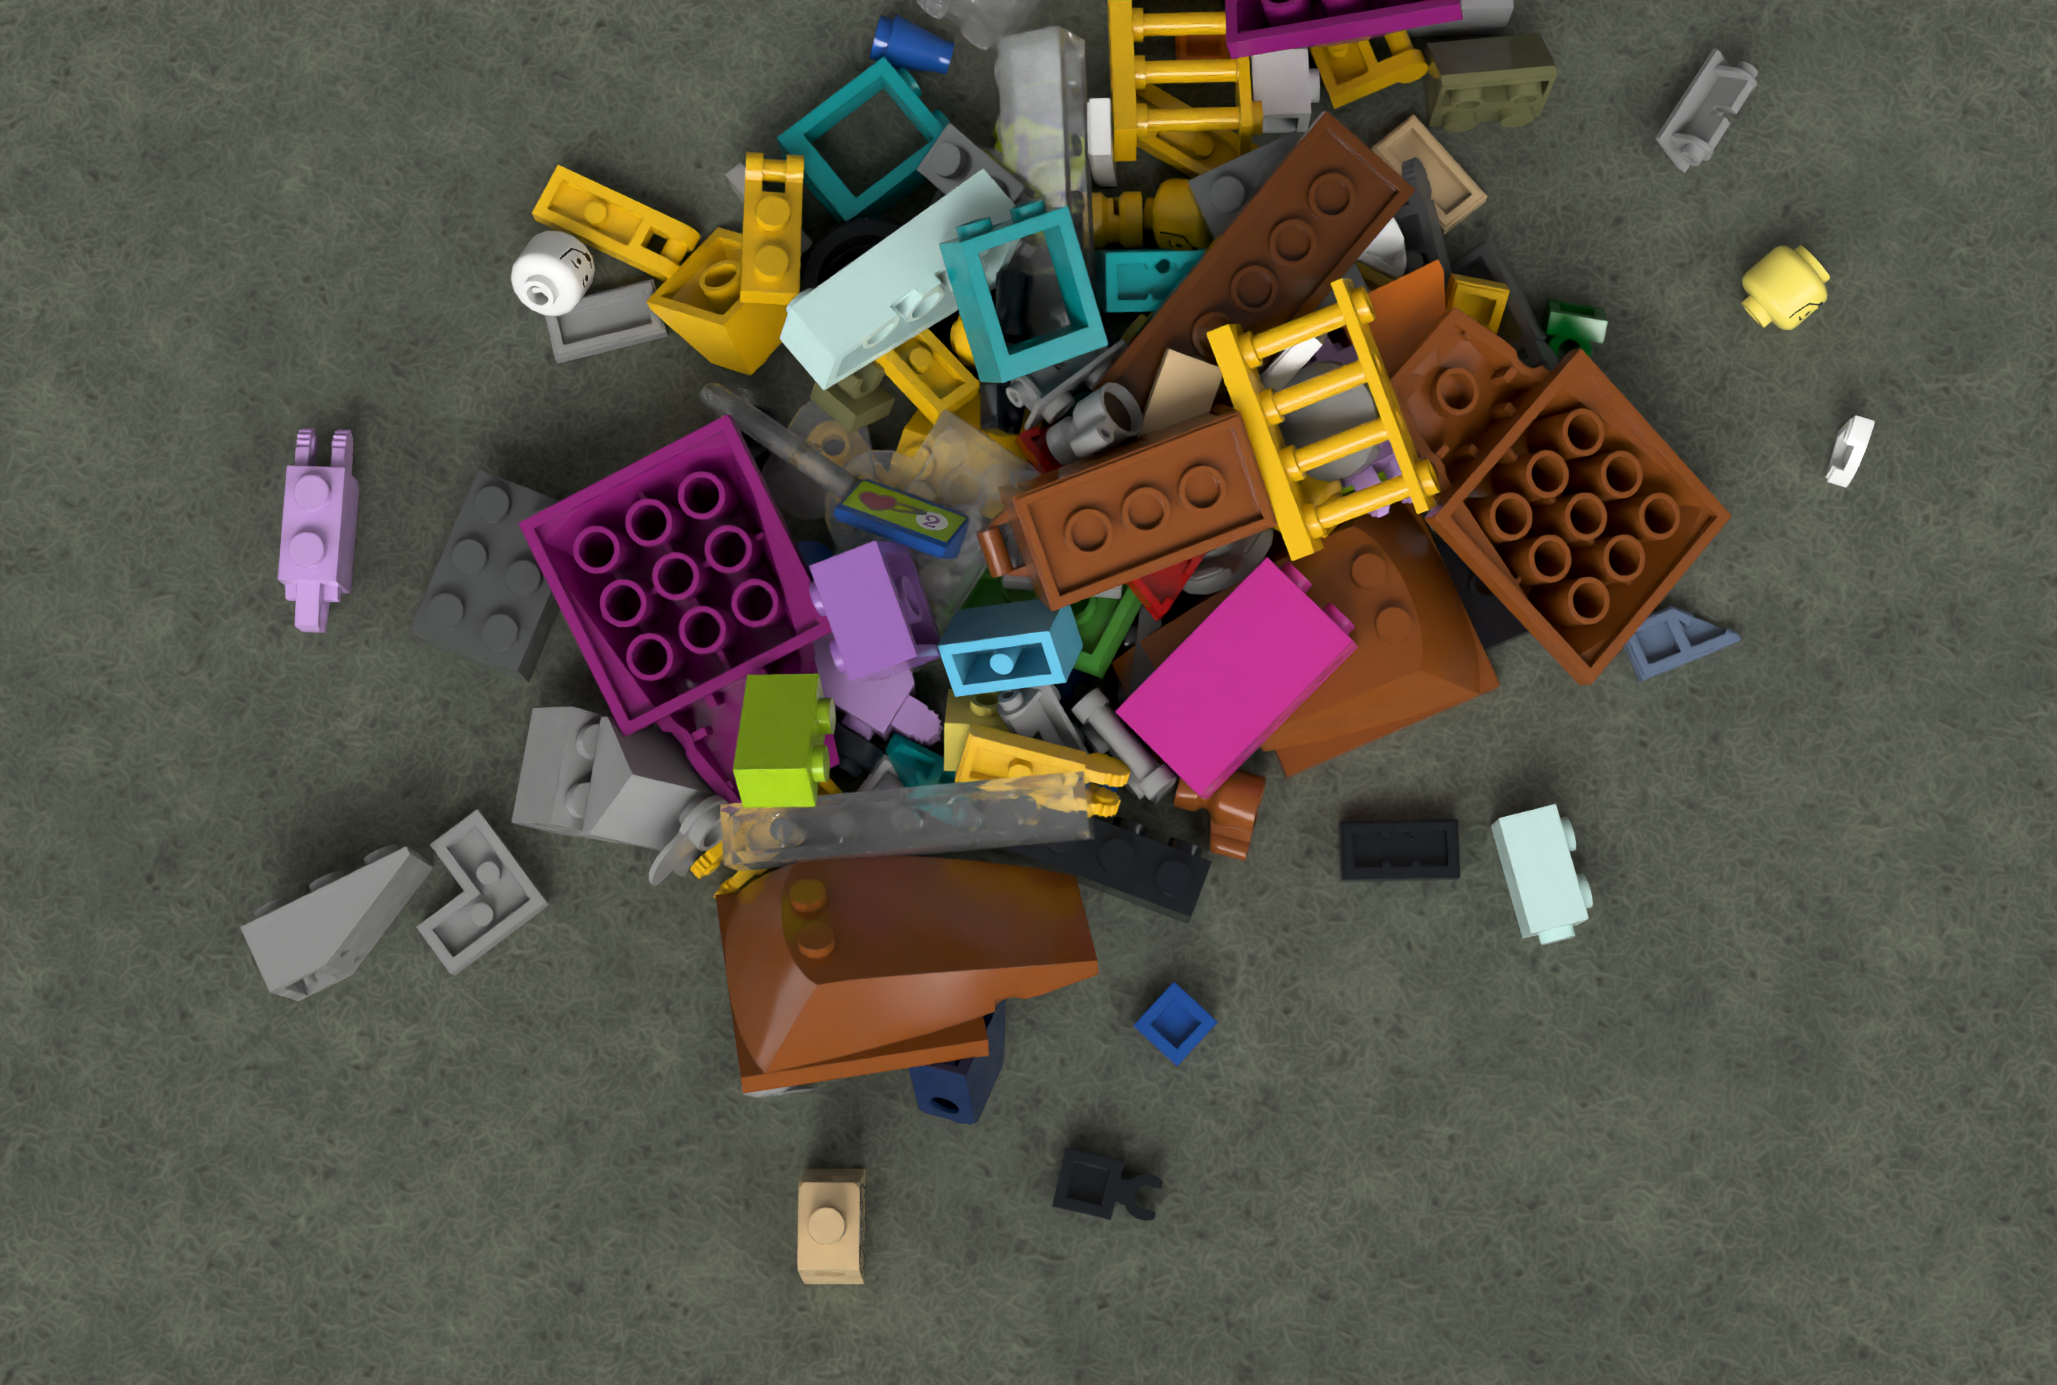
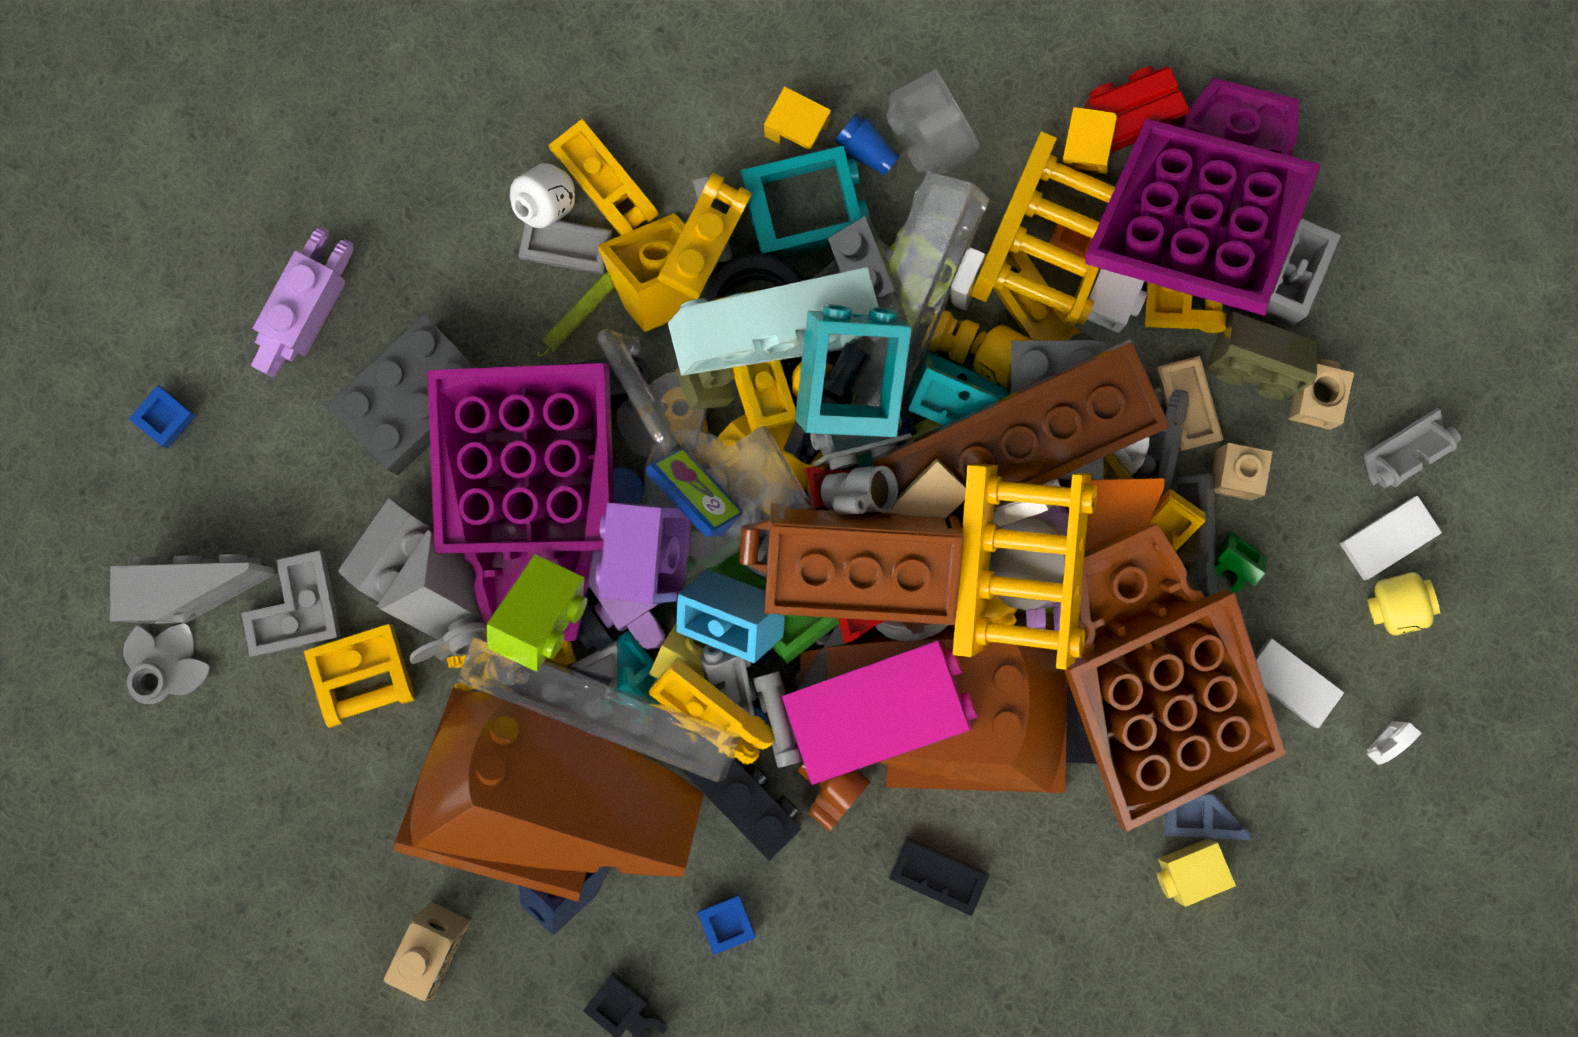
camera: 25 degrees right, 5 degrees up
(210, 740) = (162, 417): none -> blue plate
(350, 1027) = (167, 658): none -> light grey plate
(580, 922) = (353, 661): none -> yellow plate
(649, 392) = (578, 312): none -> neon yellow piece
(813, 52) = (796, 119): none -> yellow panel
(1524, 221) = (1241, 471): none -> tan brick
(1541, 873) = (1029, 941): light aqua brick -> none
(1587, 116) = (1309, 410): none -> tan brick
(1694, 704) = (1194, 873): none -> light yellow brick
(1709, 437) = (1296, 684): none -> white tile
(1733, 222) = (1390, 538): none -> white tile

